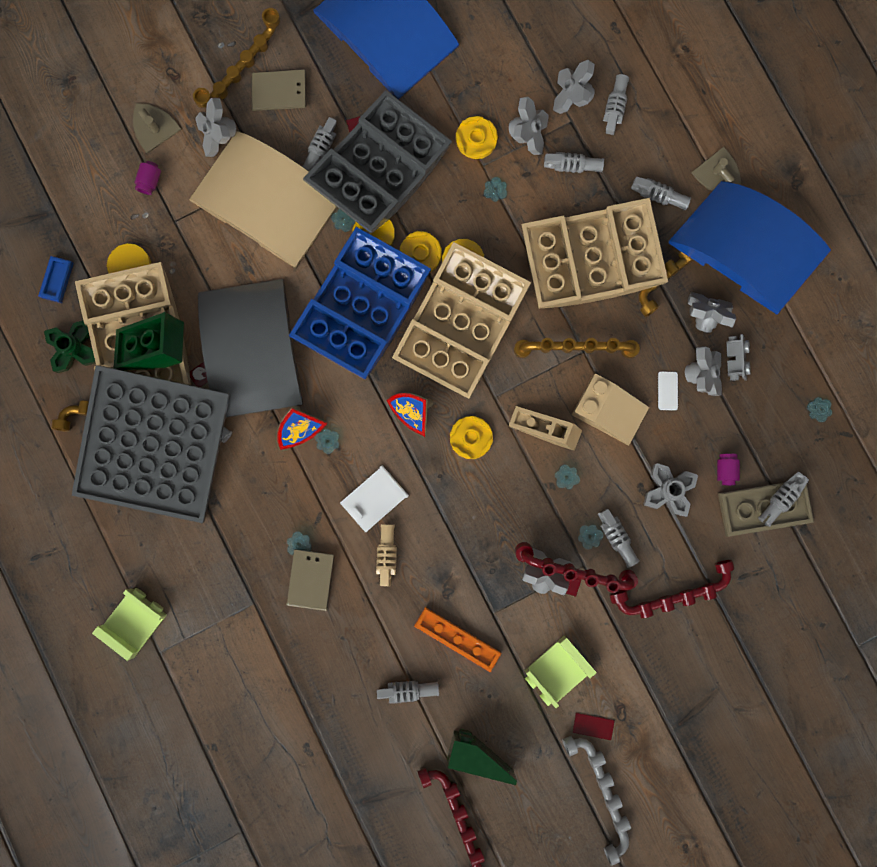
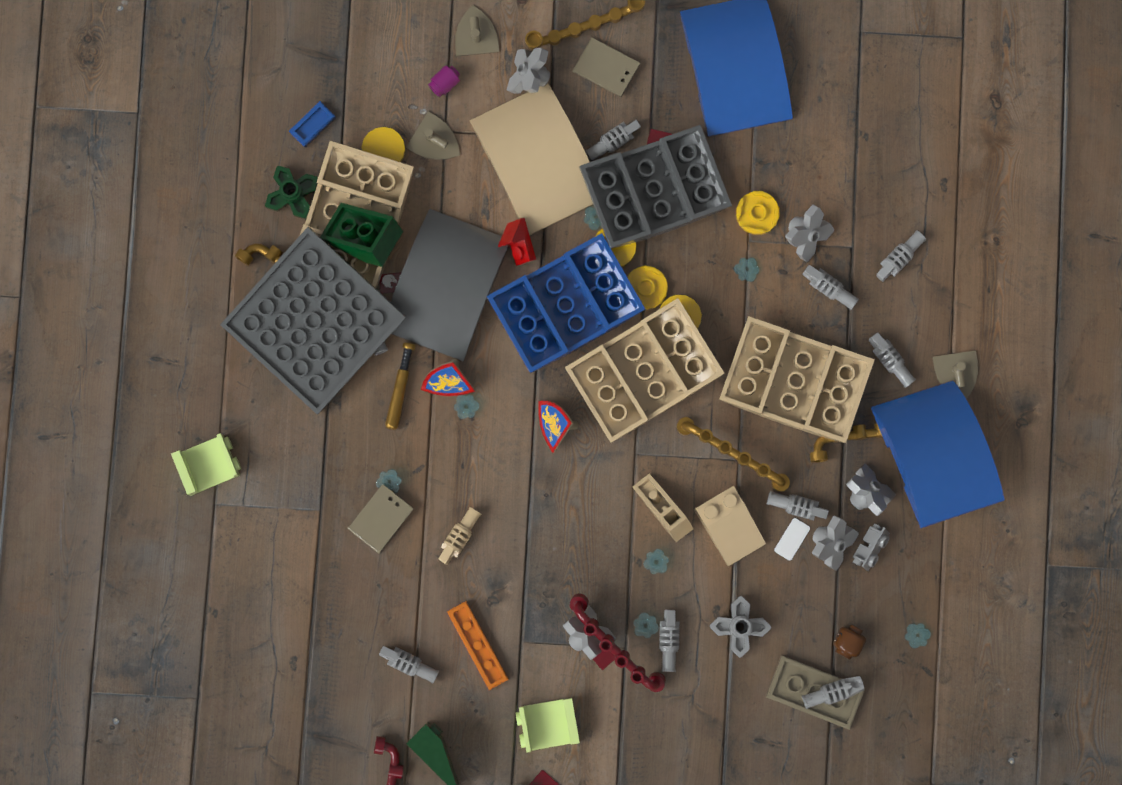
camera: 30 degrees right, 0 degrees up
(168, 233) = (434, 139): none -> dark tan shield
(267, 478) = (397, 398): none -> pearl gold piece
(287, 272) = (518, 237): none -> red slope
(374, 498) = (477, 481): white container -> none
(471, 437) = (593, 477): yellow tile -> none
(575, 87) = (871, 222): light grey plant -> none
(656, 359) = (797, 505): none -> light grey hinge
(667, 602) = (678, 722): dark red bar -> none
(728, 469) = (801, 638): magenta brick -> none
(769, 448) = (849, 641): none -> reddish brown head

